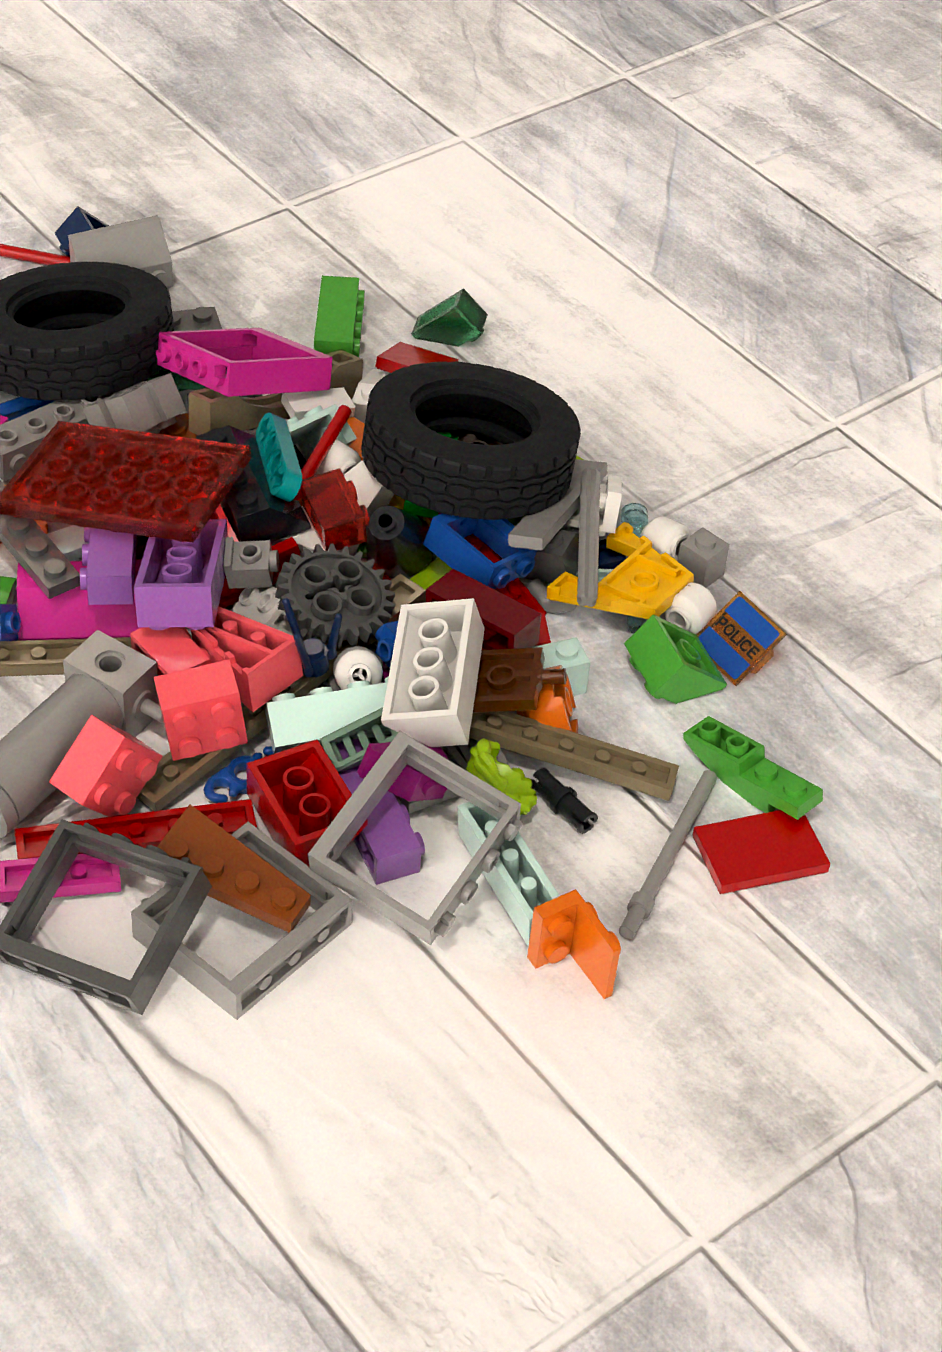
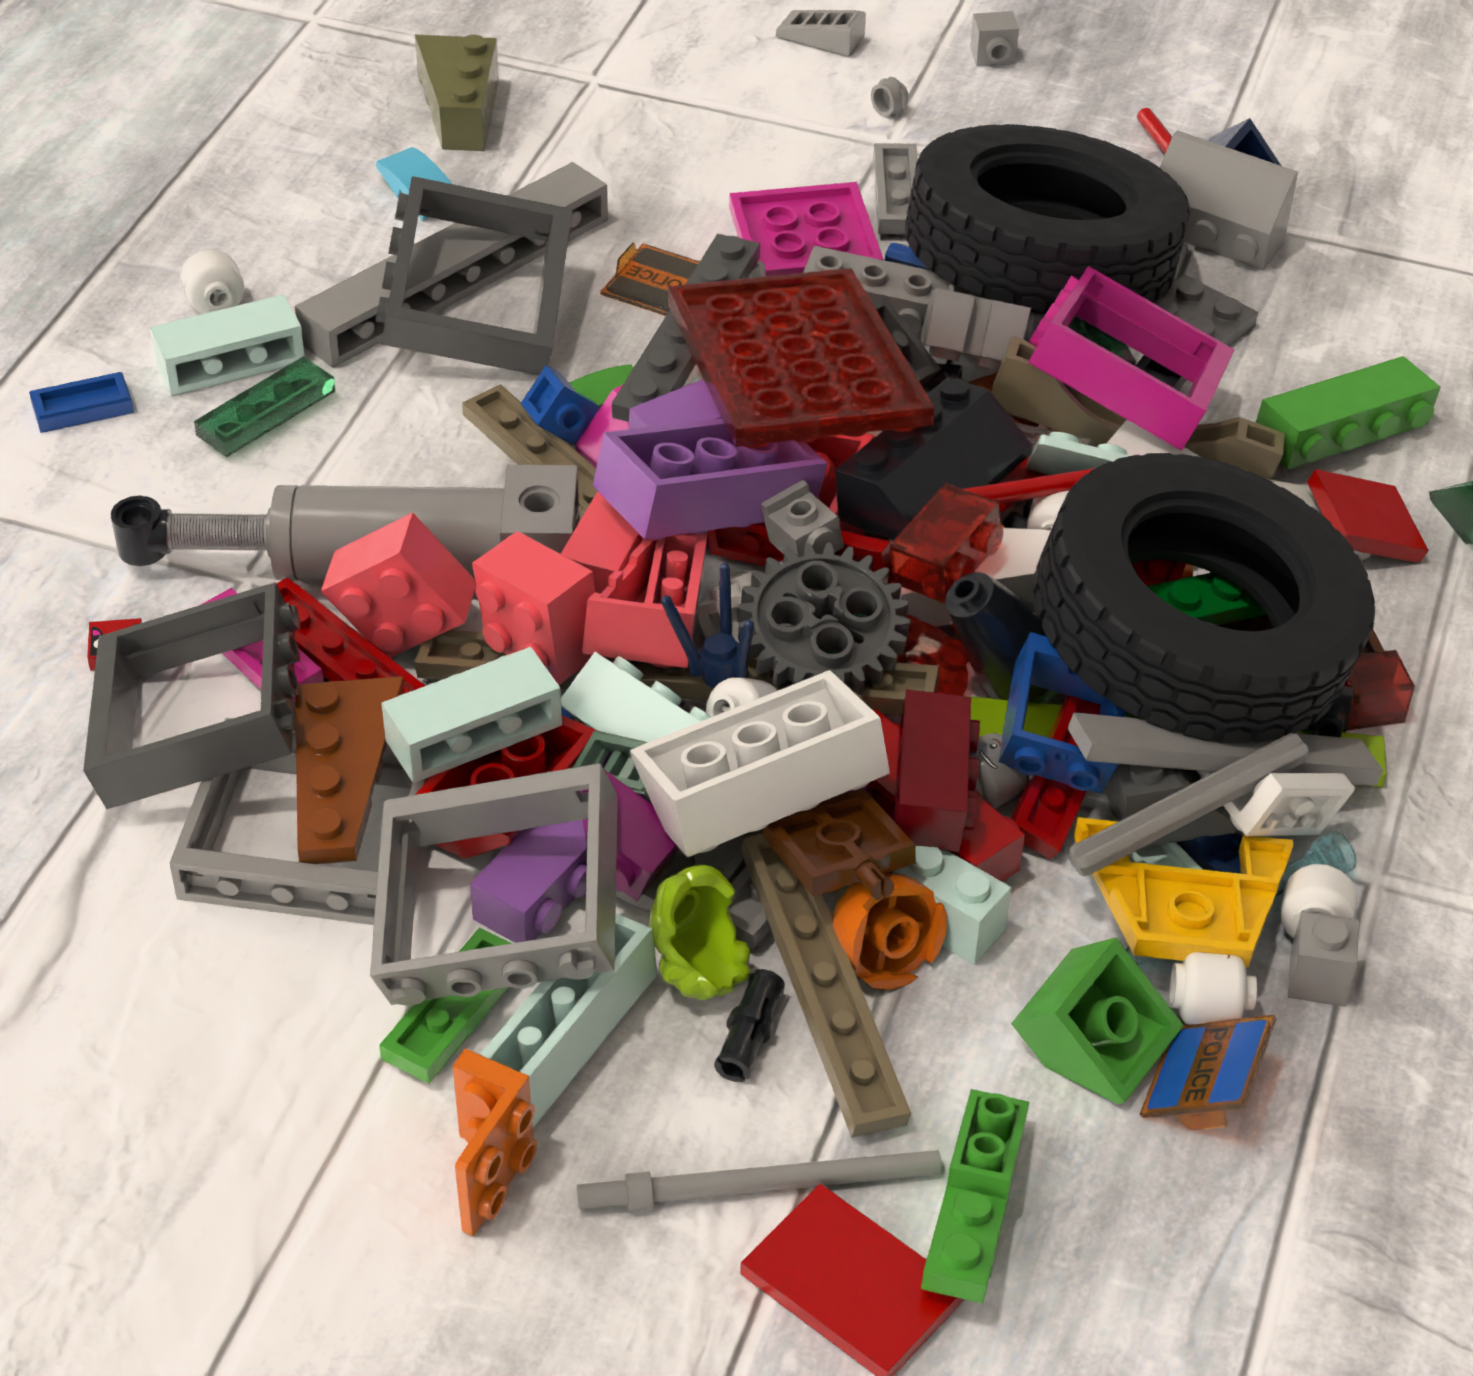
camera: 60 degrees right, 0 degrees up
(265, 782) = (472, 714): none -> light aqua brick
(278, 457) = (980, 453): teal beam -> none
(464, 943) = (439, 1026): none -> bright green plate

